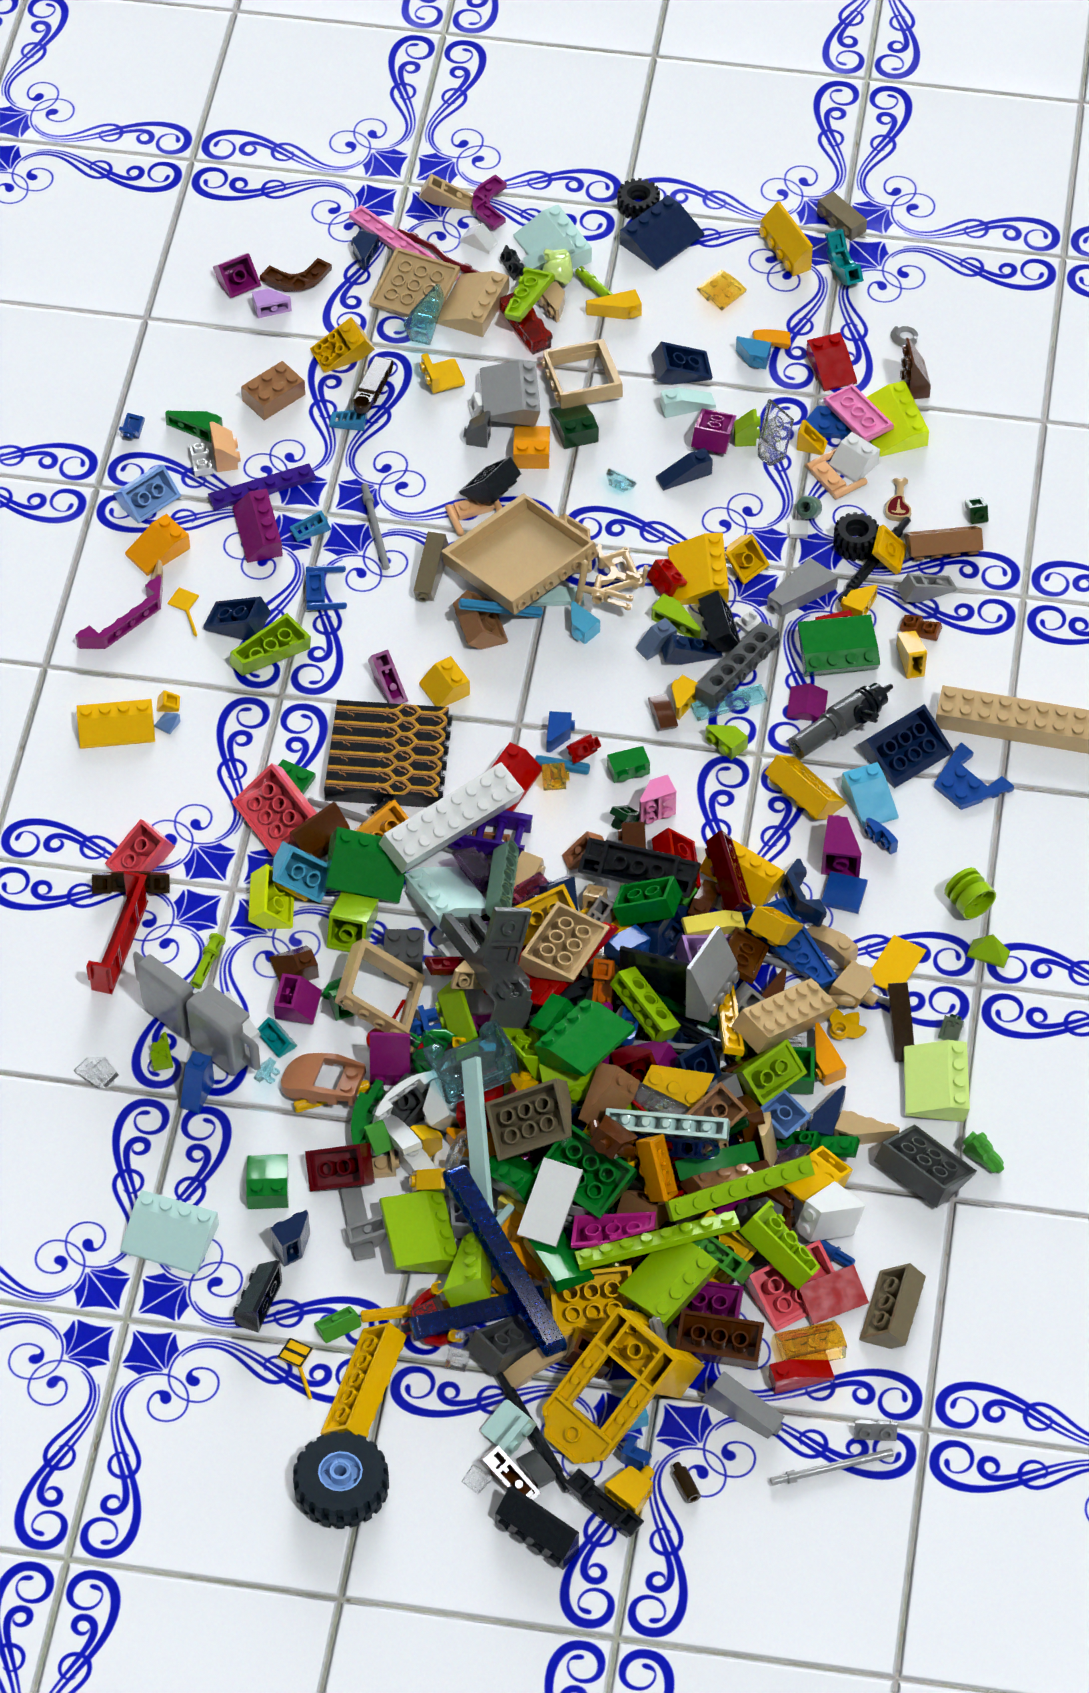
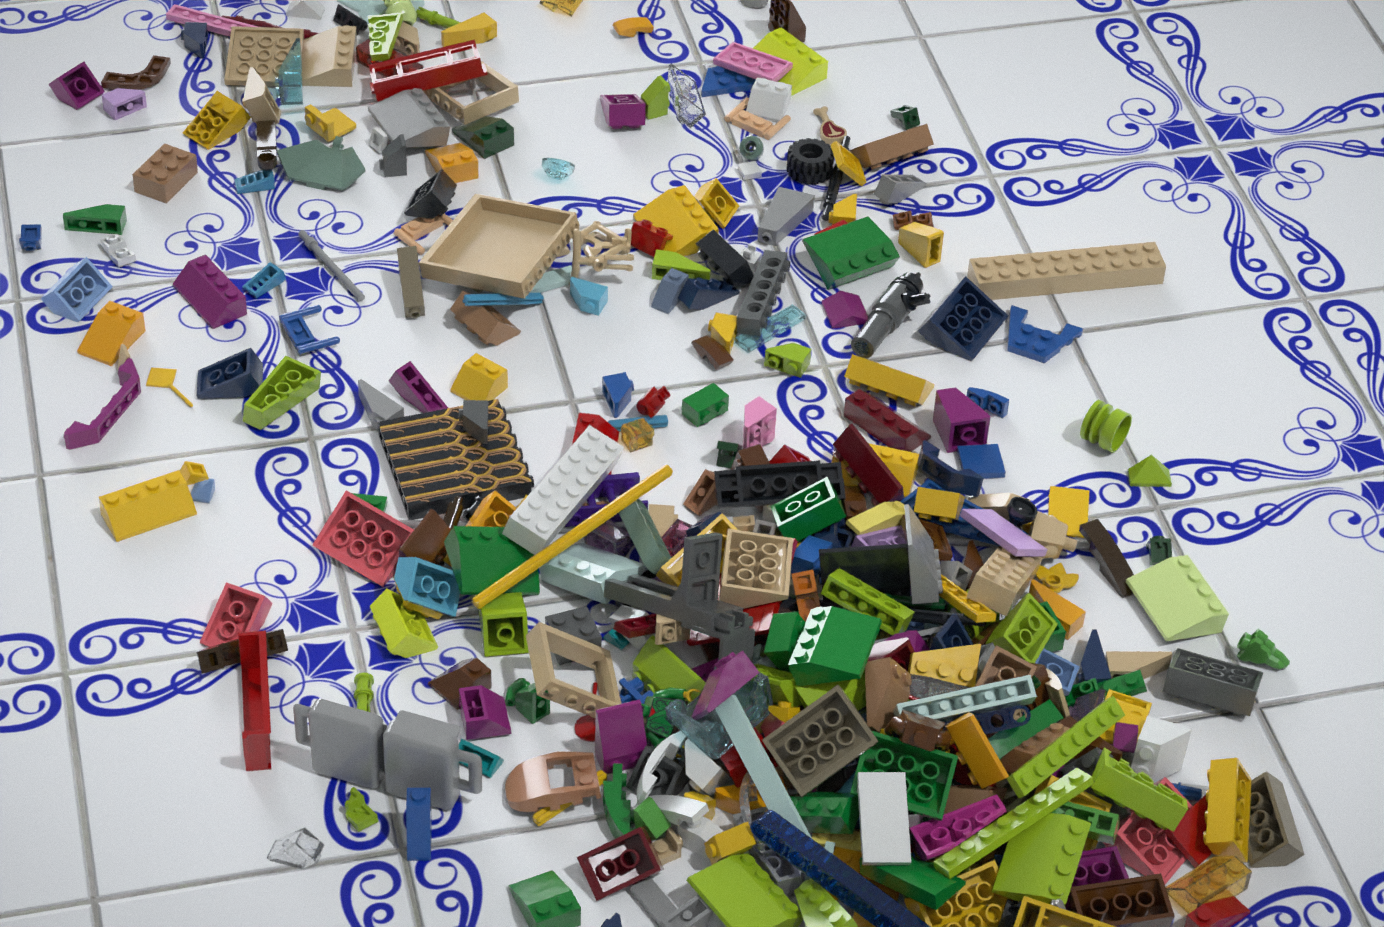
camera: 25 degrees left, 10 degrees down
(224, 448) = (139, 233): light nougat slope -> none
(267, 1068) = (488, 793): clear light blue tile -> none
(274, 483) = (213, 249): dark purple plate -> none
(347, 683) = (378, 405): none -> light grey slope
(357, 810) = (454, 512): none -> dark brown cylinder
(387, 334) = (259, 99): none -> tan slope
(413, 417) = (321, 165): none -> sand green panel
(417, 723) = (475, 419): none -> dark grey slope
(438, 863) = (571, 537): none -> yellow axle
(479, 1041) = (727, 678): none -> magenta slope
(549, 353) = (428, 77): none -> red piece
(680, 364) = (558, 64): dark blue slope -> none
(684, 401) = (579, 92): light aqua slope -> none
(687, 469) = (616, 145): dark blue slope -> none
(753, 351) = (623, 39): dark azure slope -> none
(779, 827) = (883, 422): none -> dark red slope
(803, 1192) = (1125, 737): none -> magenta slope
(809, 972) = (1003, 533): none -> lavender tile
(810, 440) = (717, 96): yellow slope -> none
(831, 361) = (699, 30): red slope -> none
(839, 954) = (1021, 511): none -> black piece
(860, 1286) = (1228, 808): none -> yellow slope
(869, 794) = (952, 367): medium azure slope -> none

